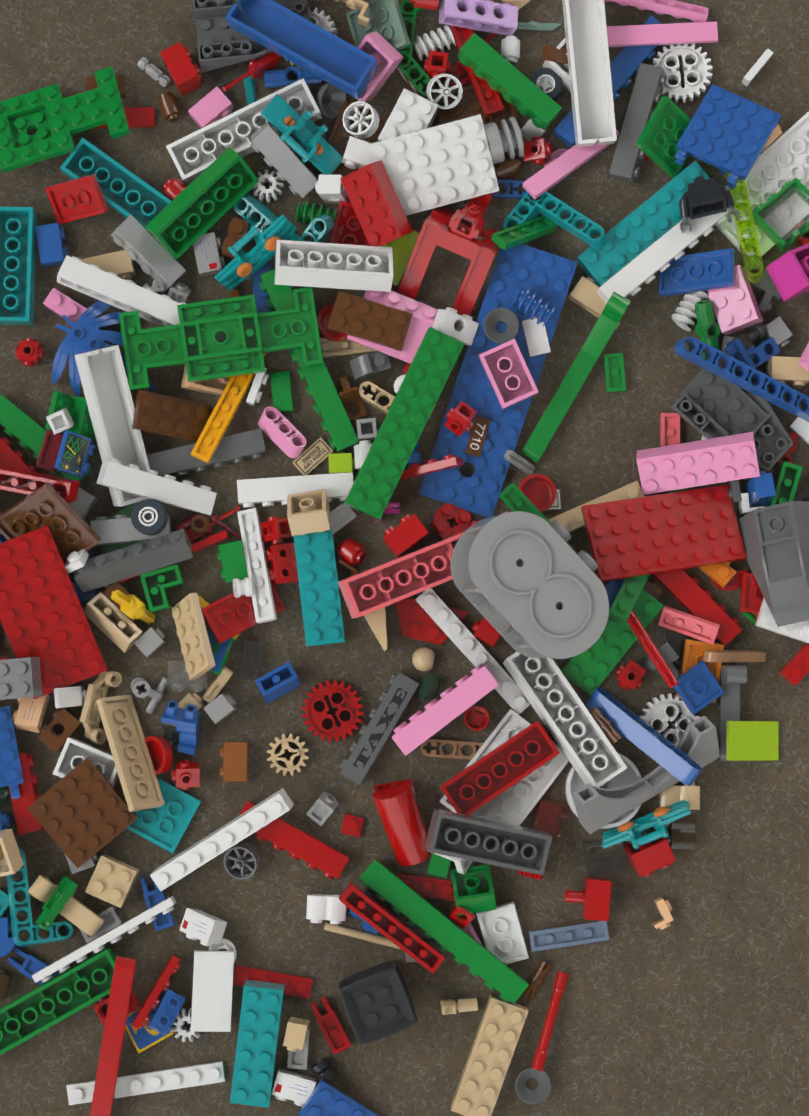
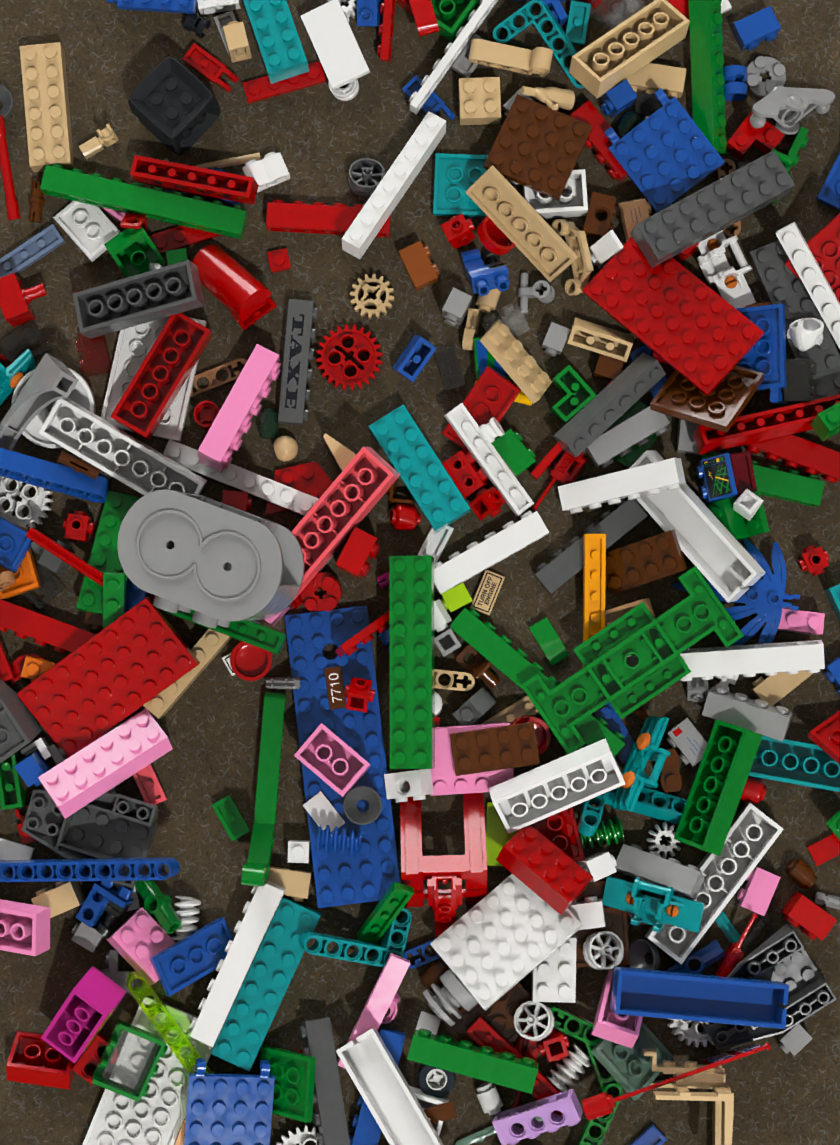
camera: 160 degrees right, 0 degrees up
(48, 852) = (552, 96): none -> tan piece
(56, 902) = (520, 53): green hinge -> none
(76, 560) = (663, 377): white plate -> none
(132, 606) = (588, 362): yellow axle -> none
(149, 517) = (614, 452): black wheel -> none
(194, 521) = (570, 473): reddish brown plate -> none
(203, 927) = (373, 98): white brick -> none
(214, 518) = (553, 485): dark red hinge -> none
(255, 395) = (574, 626): white plate -> none
(282, 432) = (521, 593): bright pink beam -> none
(308, 512) = (463, 532): tan brick -> none
(322, 808) = (314, 262): light grey bracket -> none
(537, 150) = (412, 1006): red brick -> none
(571, 318) = (299, 851): none -> white brick
(689, 625) = (43, 601): coral plate -> none
(705, 199) = (218, 1032): black torso -> none

